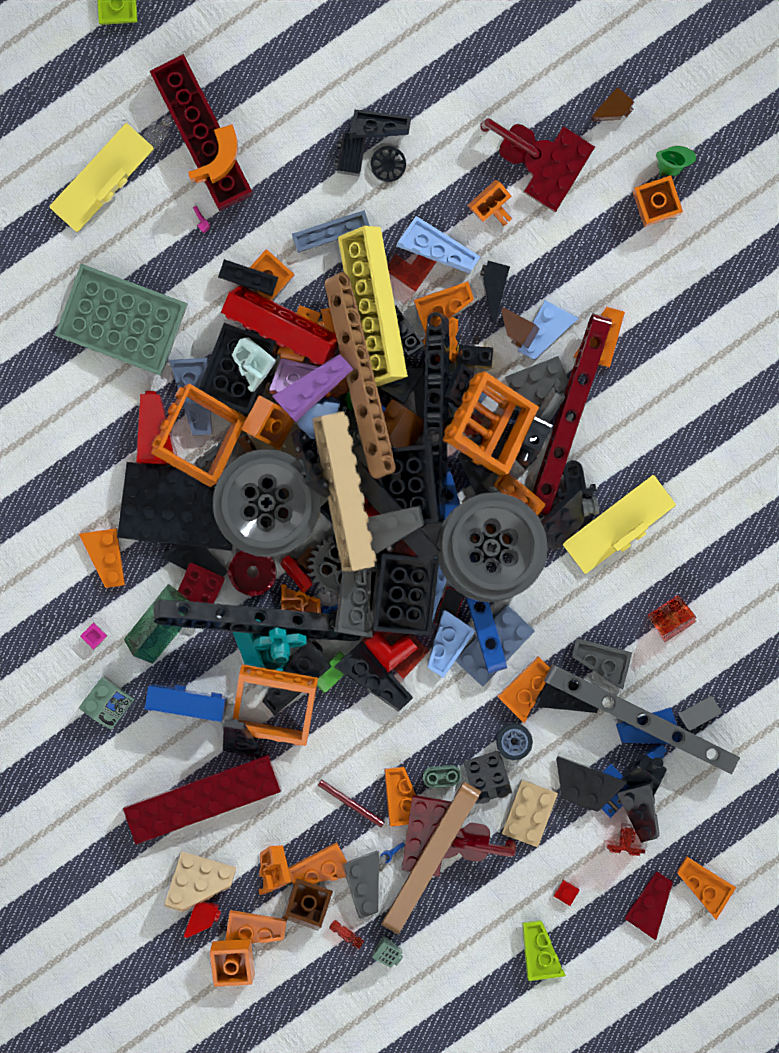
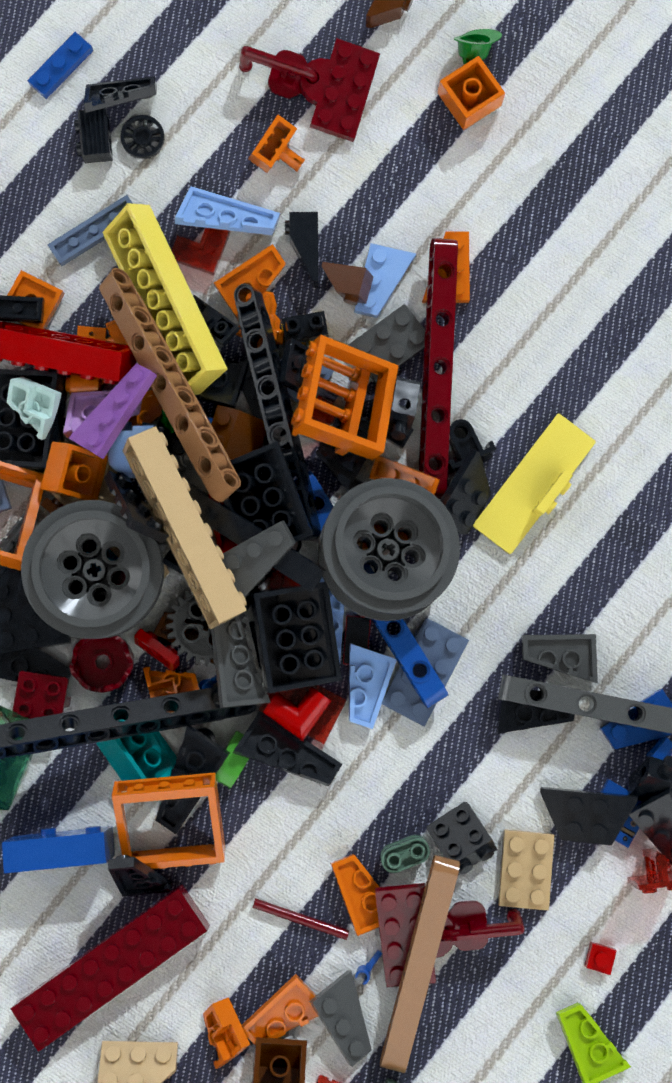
camera: 15 degrees left, 5 degrees down
(279, 644) = (155, 742): teal plant -> none
(338, 87) = (60, 65): none -> blue plate
(504, 738) = (483, 797): wheel -> none
(525, 688) = (476, 716): orange wing -> none
(550, 404) = (411, 360): dark grey axle -> none
(590, 506) = (494, 470): dark grey wheel -> none
(672, 618) = (632, 579): clear red bracket -> none

